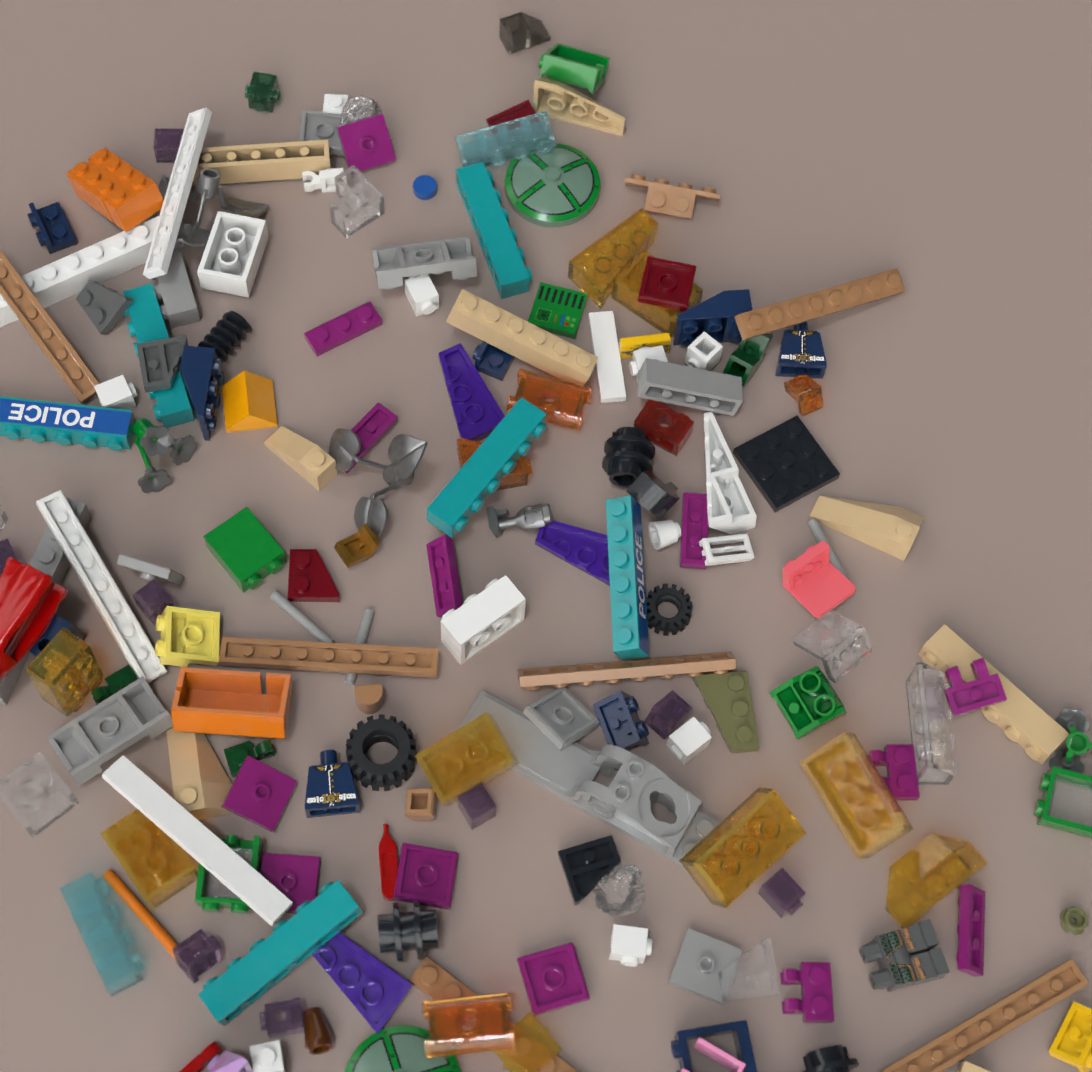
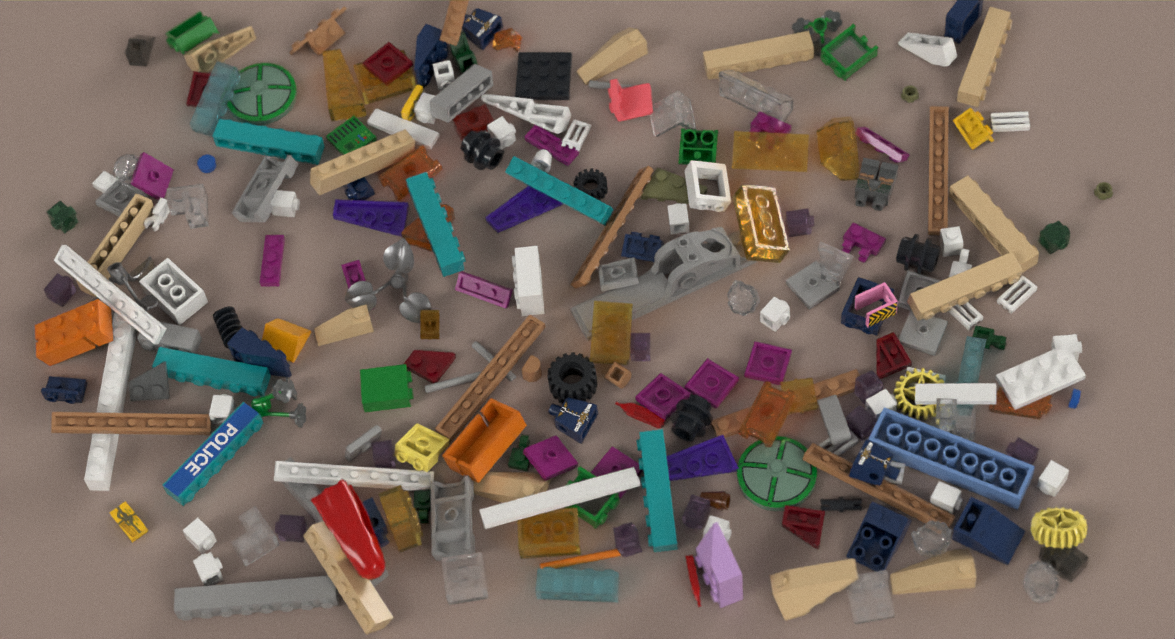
camera: 45 degrees left, 5 degrees down
(160, 362) = (223, 366): dark grey wing -> none
(481, 925) = (712, 383): none -> magenta plate
(526, 519) = (479, 225): flat silver piece -> none
(587, 865) = (715, 310): black wing -> none
(653, 493) = (517, 147): black brick -> none
(668, 714) = (656, 219): clear purple brick -> none
(672, 464) = (502, 131): none -> white brick
(776, 732) = (709, 171): none -> white window
(975, 694) = (755, 60): magenta plate -> none

